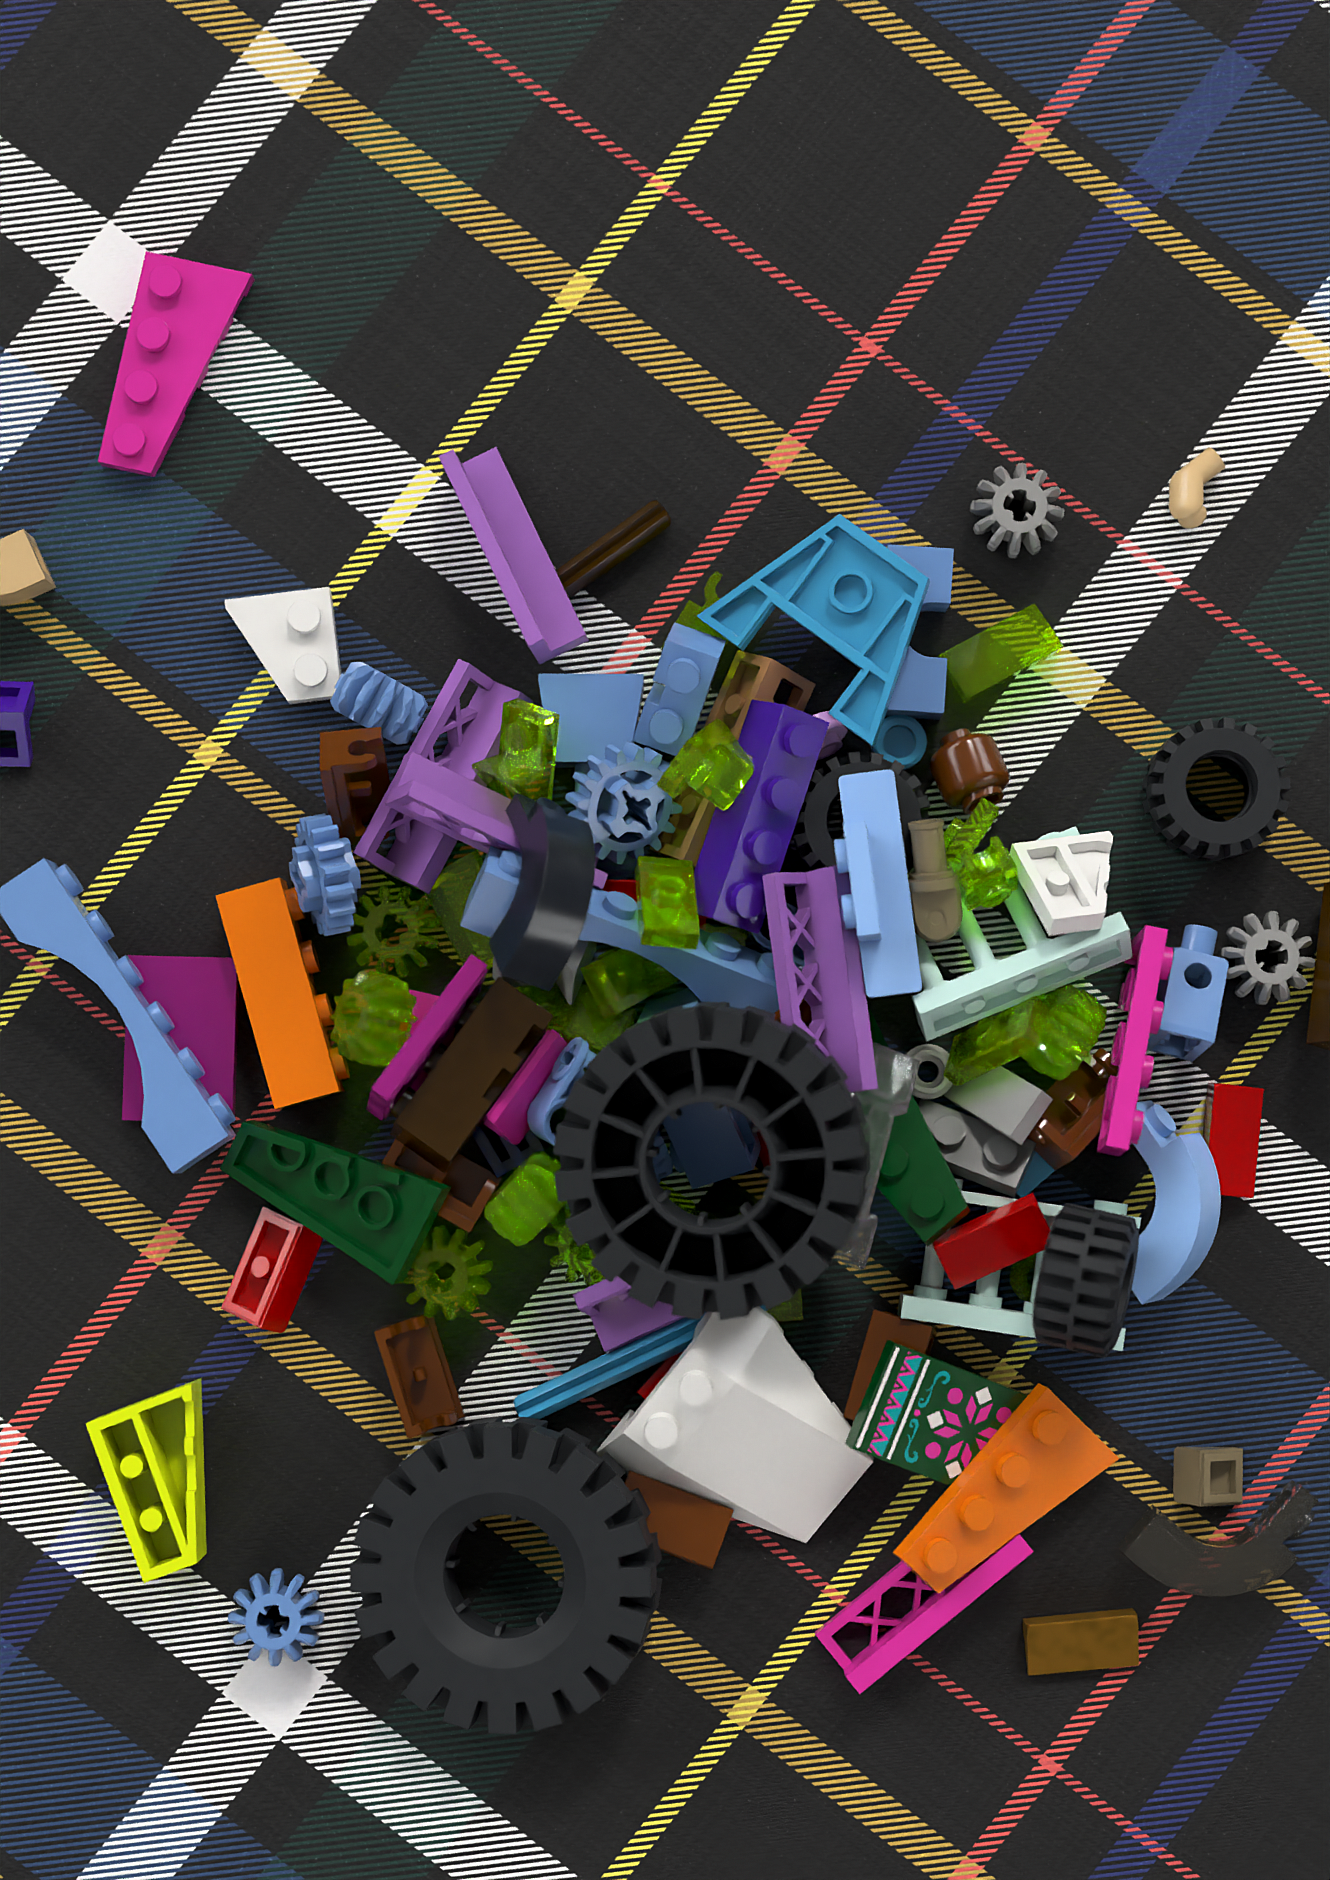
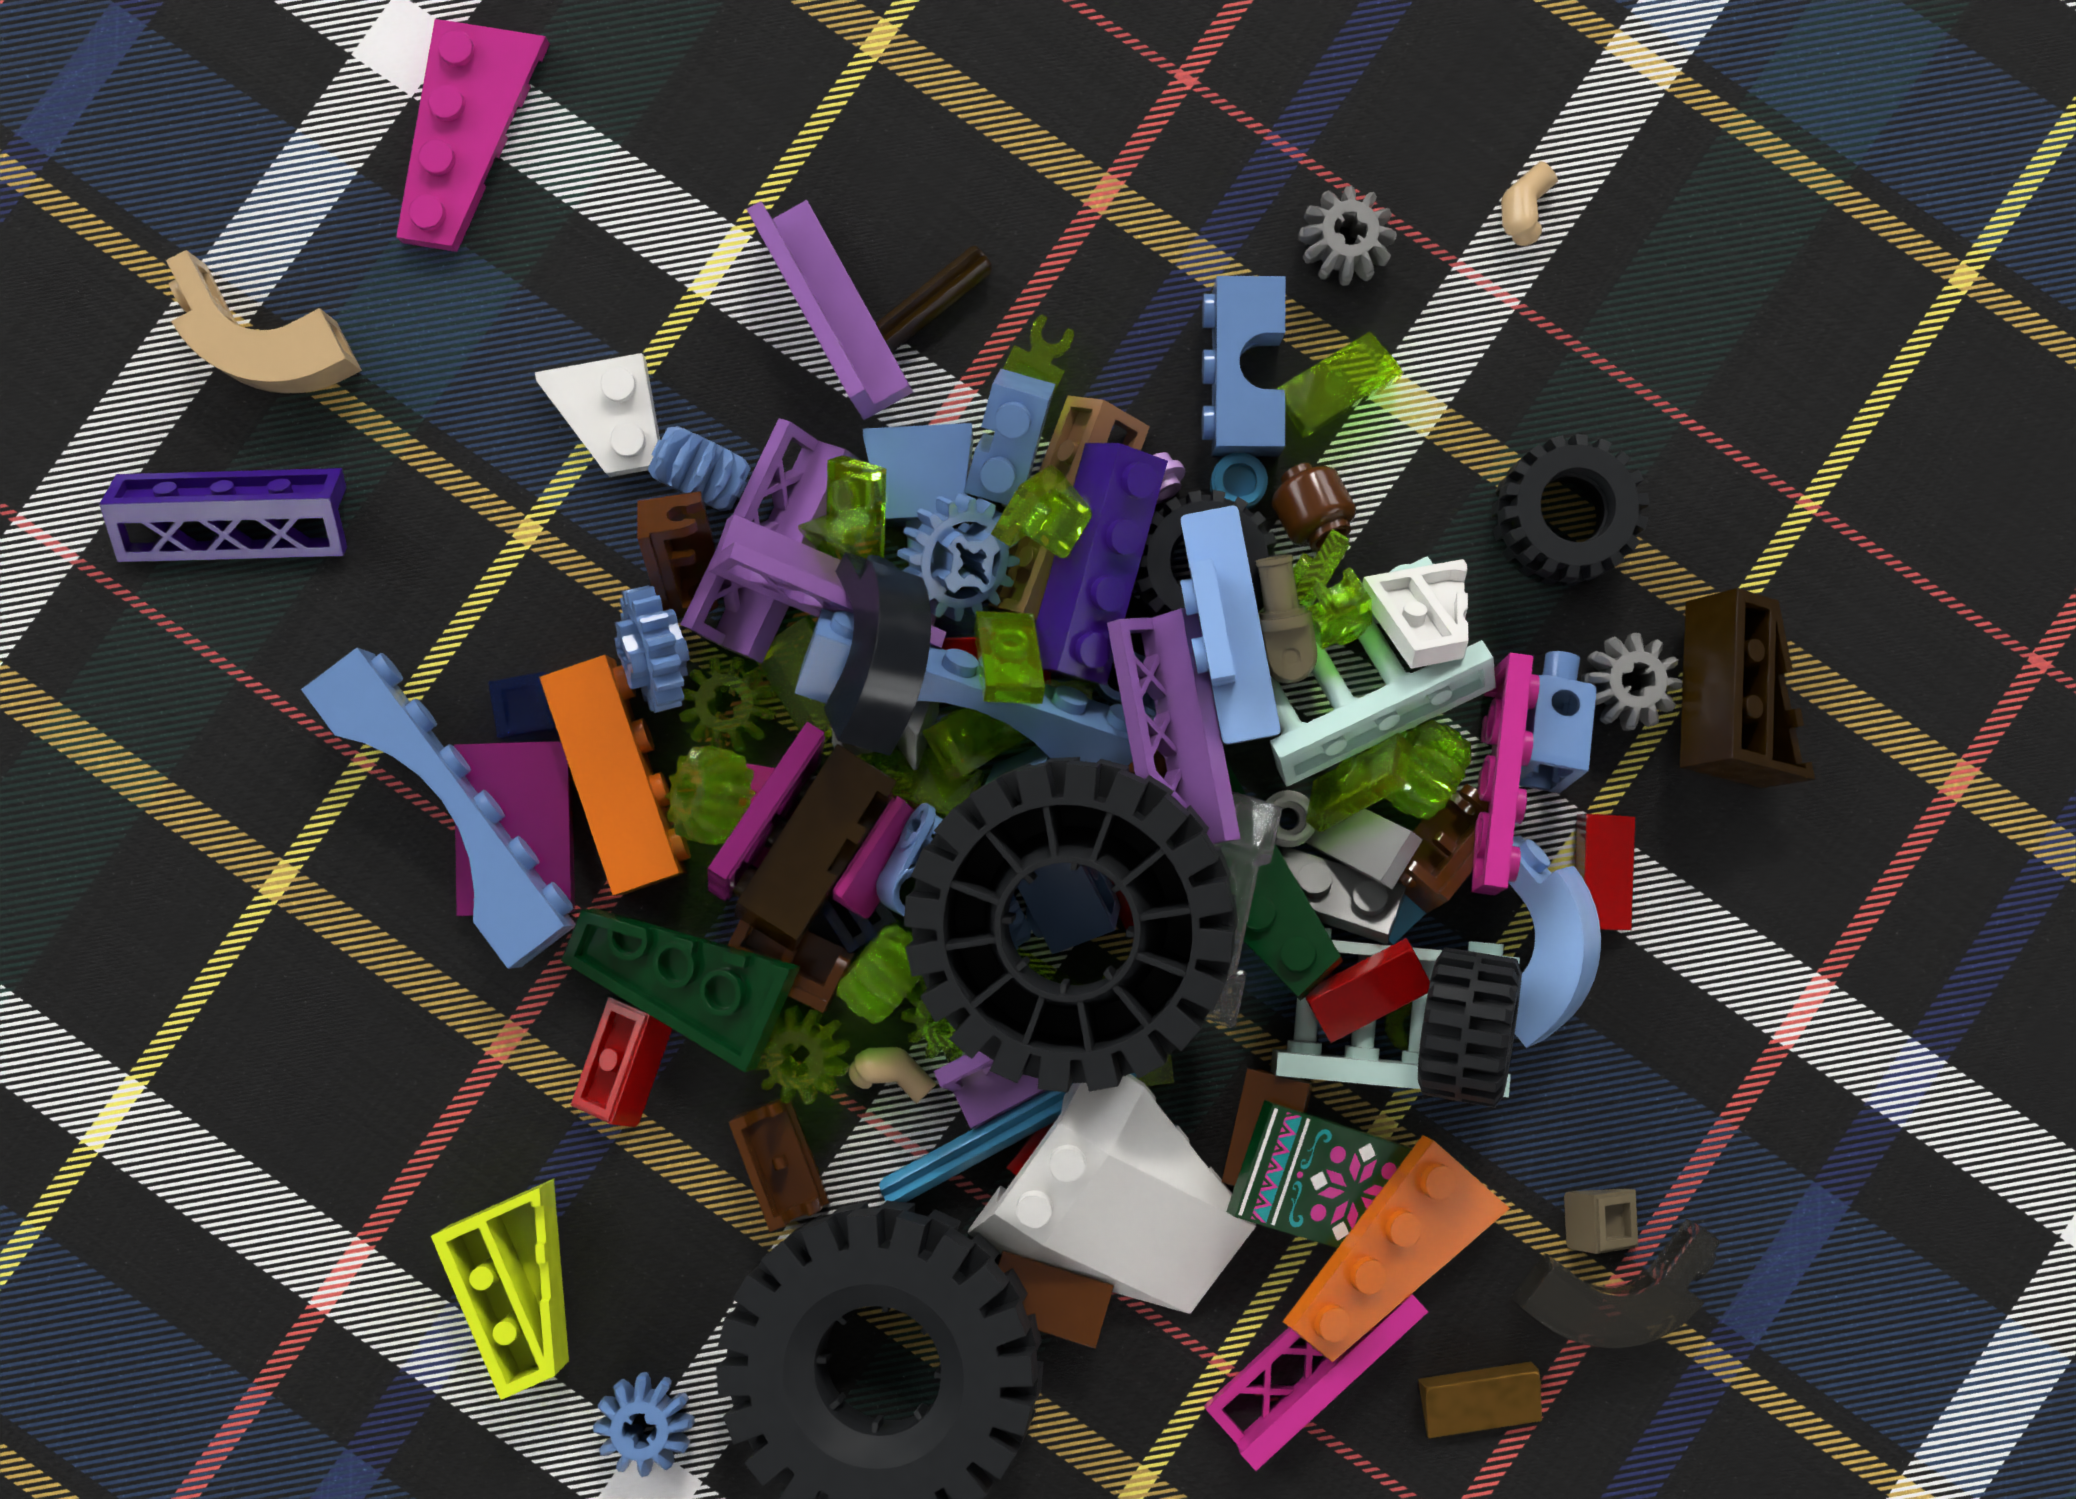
camera: 10 degrees left, 0 degrees up
(194, 921) = (520, 706): none -> clear blue tile
(530, 1288) = (888, 1066): none -> tan arm
(846, 595) = (1178, 329): dark azure wing -> none

